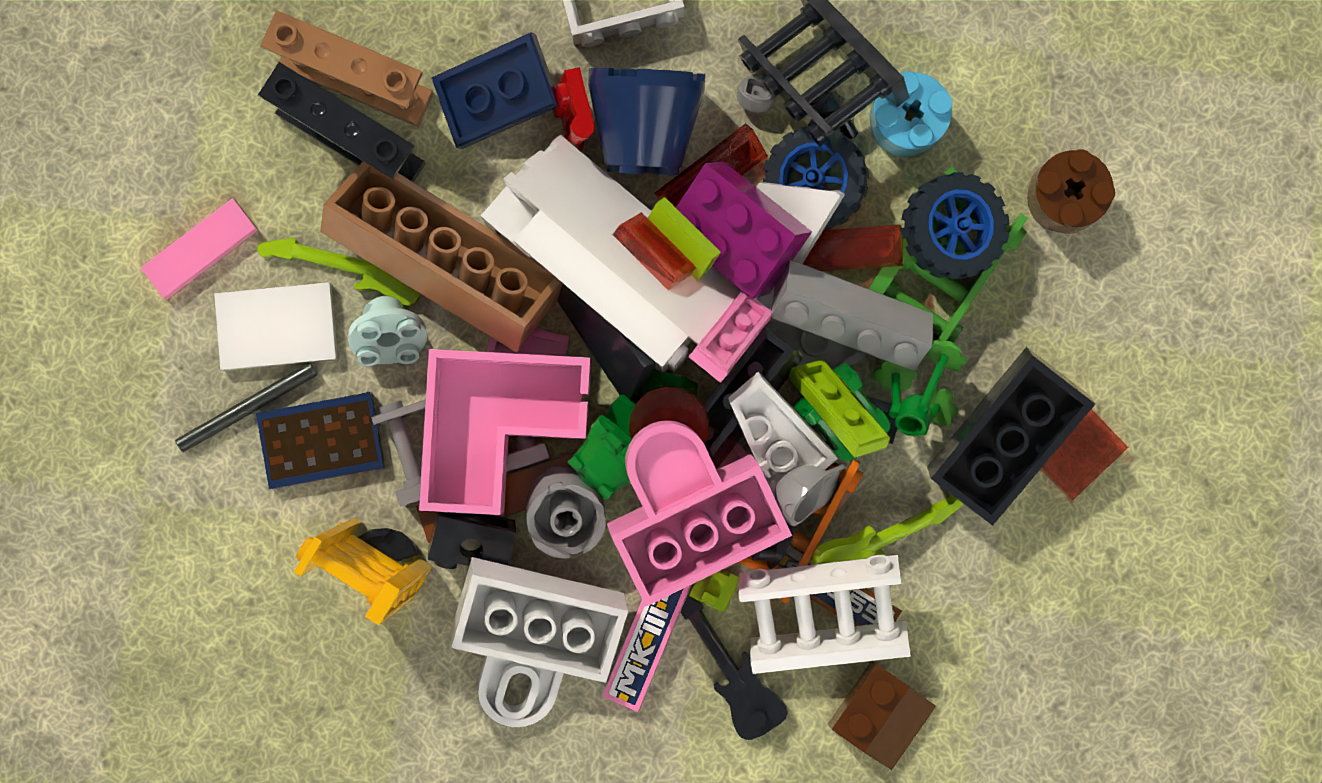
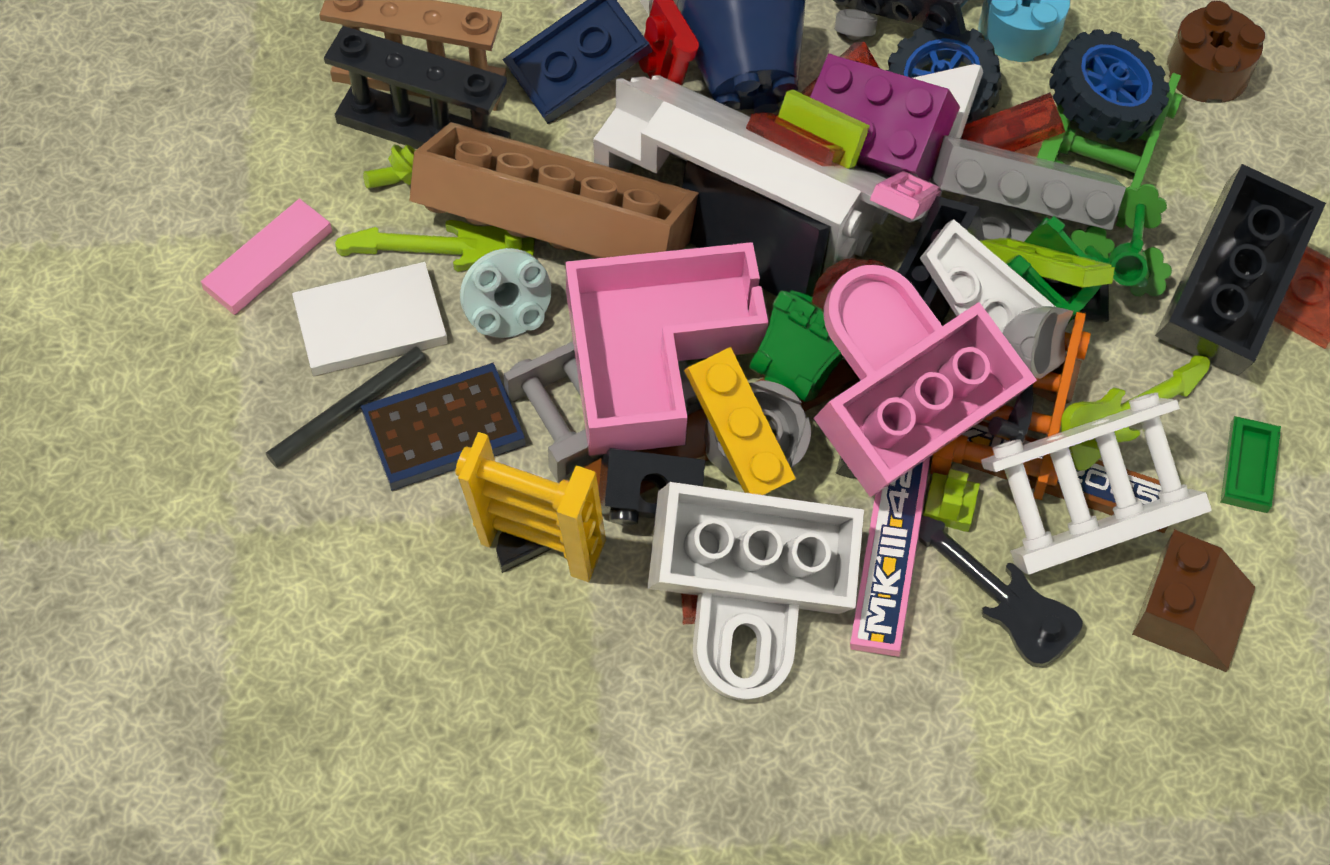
camera: 15 degrees left, 25 degrees down
(325, 180) = (400, 170): none -> lime plate
(544, 519) = (739, 423): none -> yellow plate
(969, 598) = (1250, 464): none -> green tile

